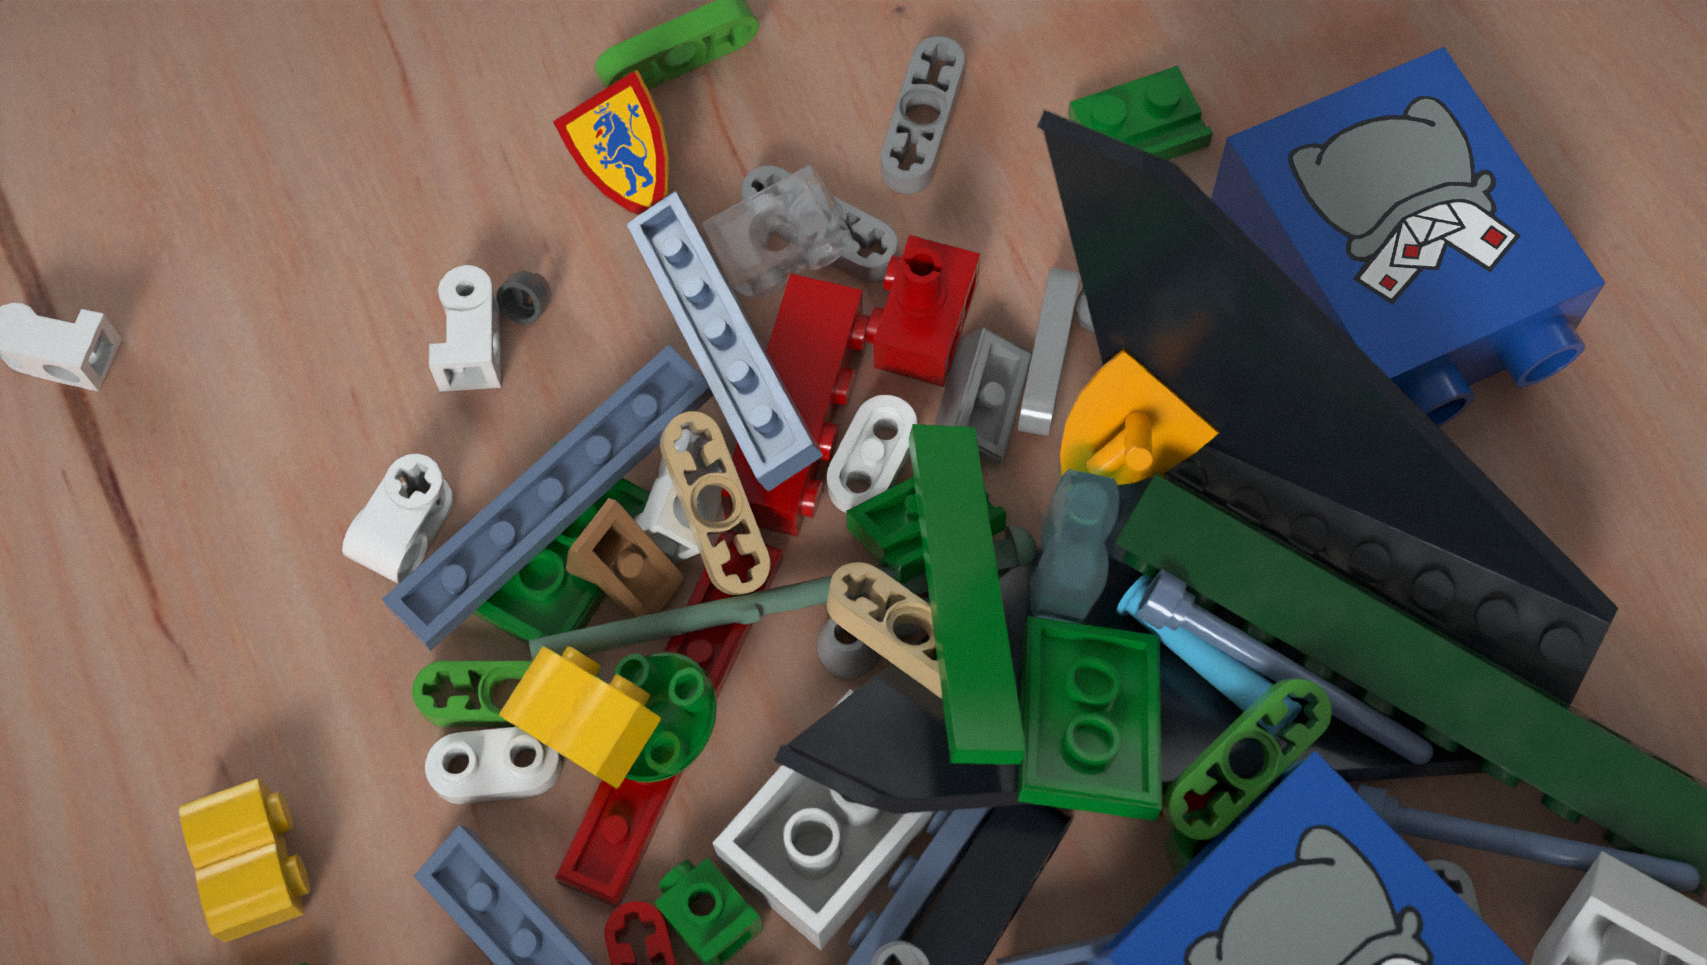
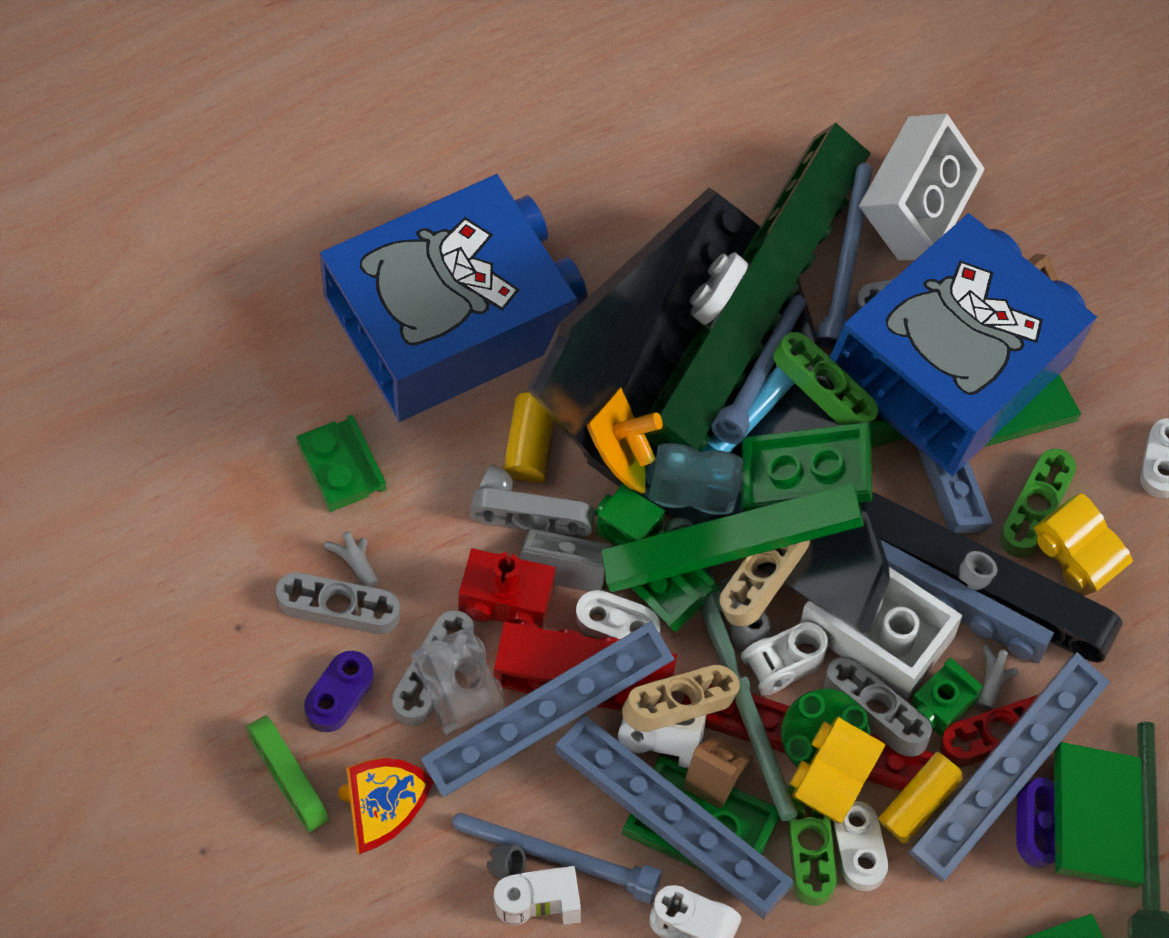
camera: 100 degrees left, 5 degrees down
(473, 460) = (639, 881): none -> sand blue piece
(539, 848) = (921, 798): none -> yellow brick
(652, 822) = (881, 724): none -> light grey beam
(790, 674) = (778, 660): none -> white piece
(791, 111) = (341, 689): none -> dark purple plate
(985, 139) = (356, 557): none -> light grey bar
(1025, 476) = (627, 517): none -> green brick
(1394, 586) = (714, 295): none -> white plate

